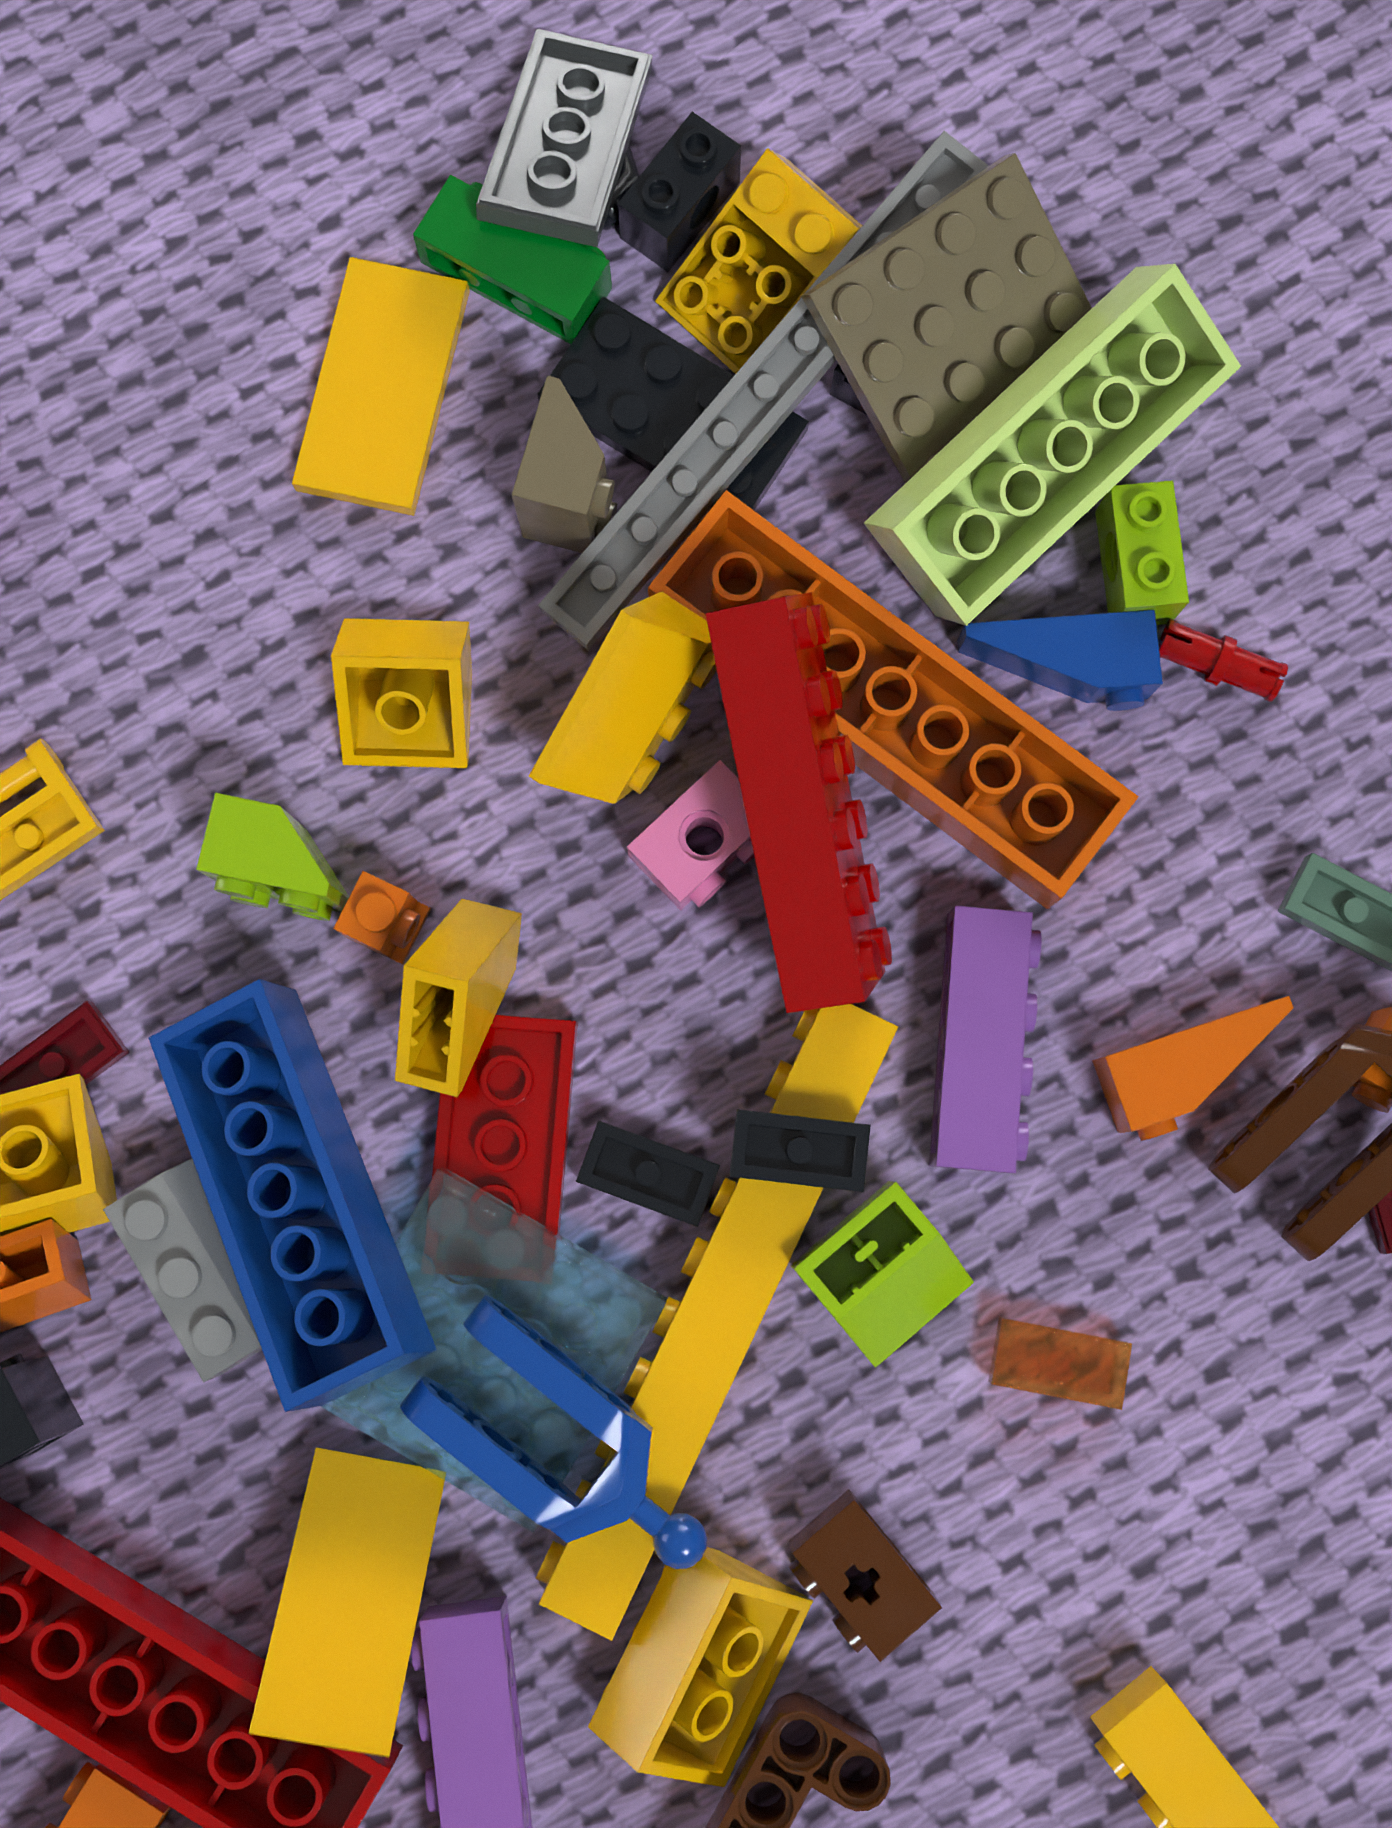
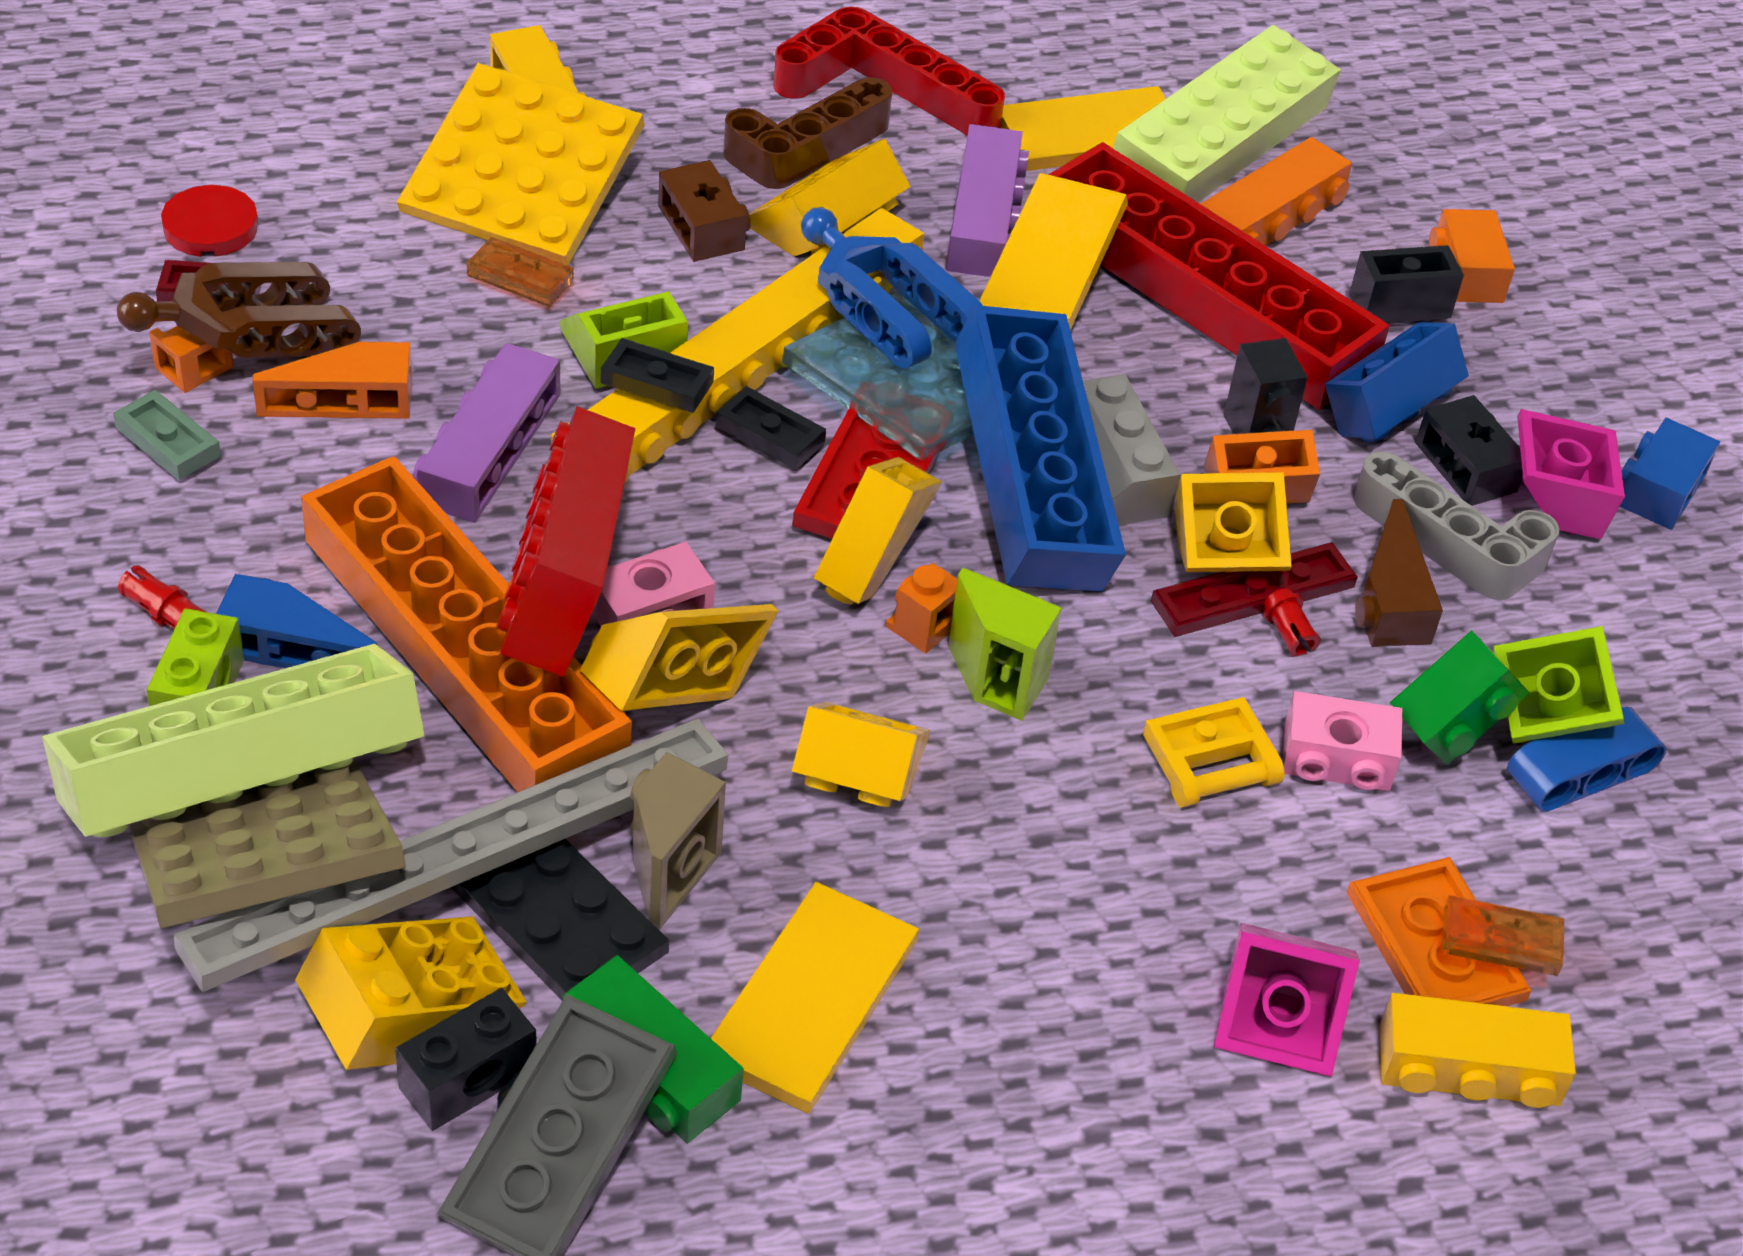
camera: 170 degrees left, 35 degrees down
(1139, 1576) = (521, 163): none -> yellow plate

